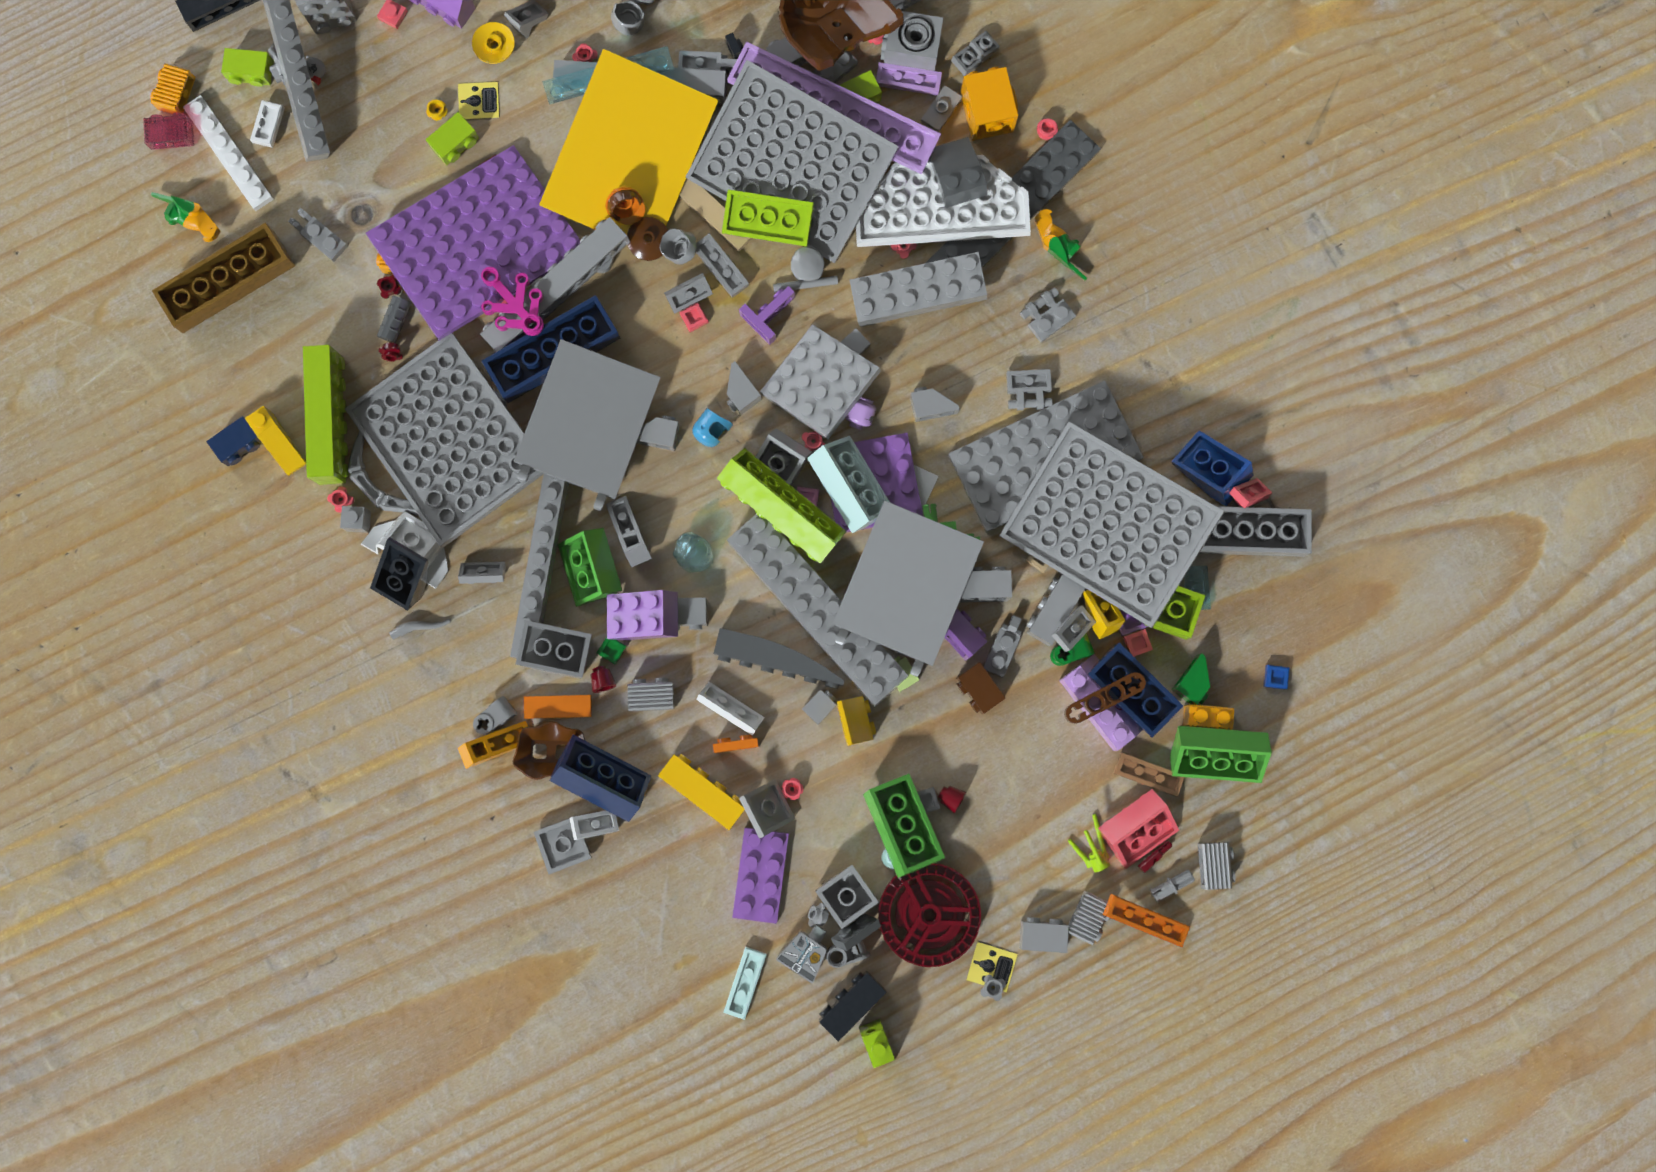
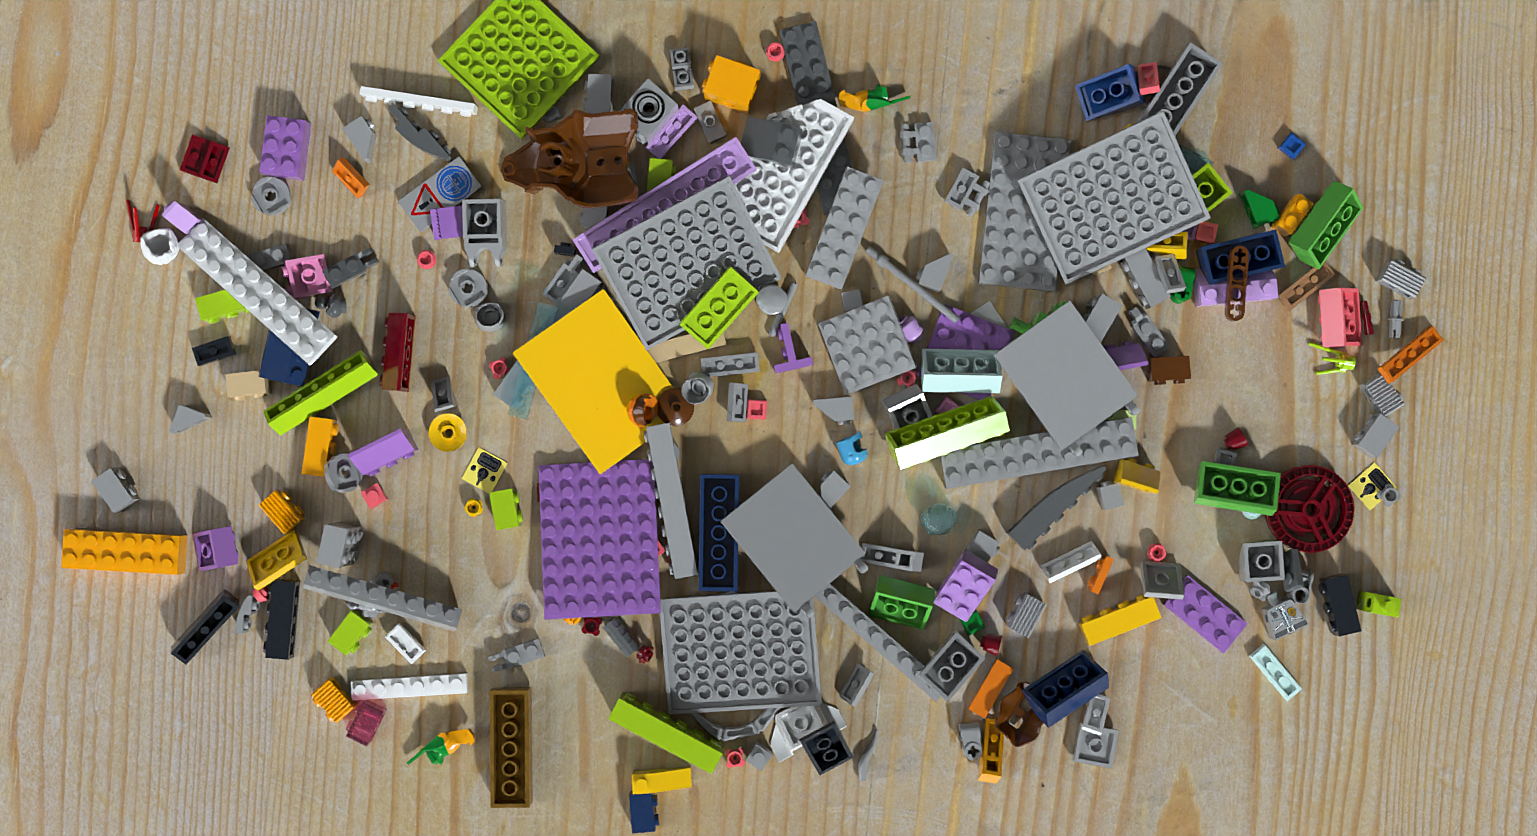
camera: 60 degrees left, 5 degrees up
(515, 304) = (672, 539): dark pink plant -> none
(911, 351) = (883, 261): none -> light grey bar

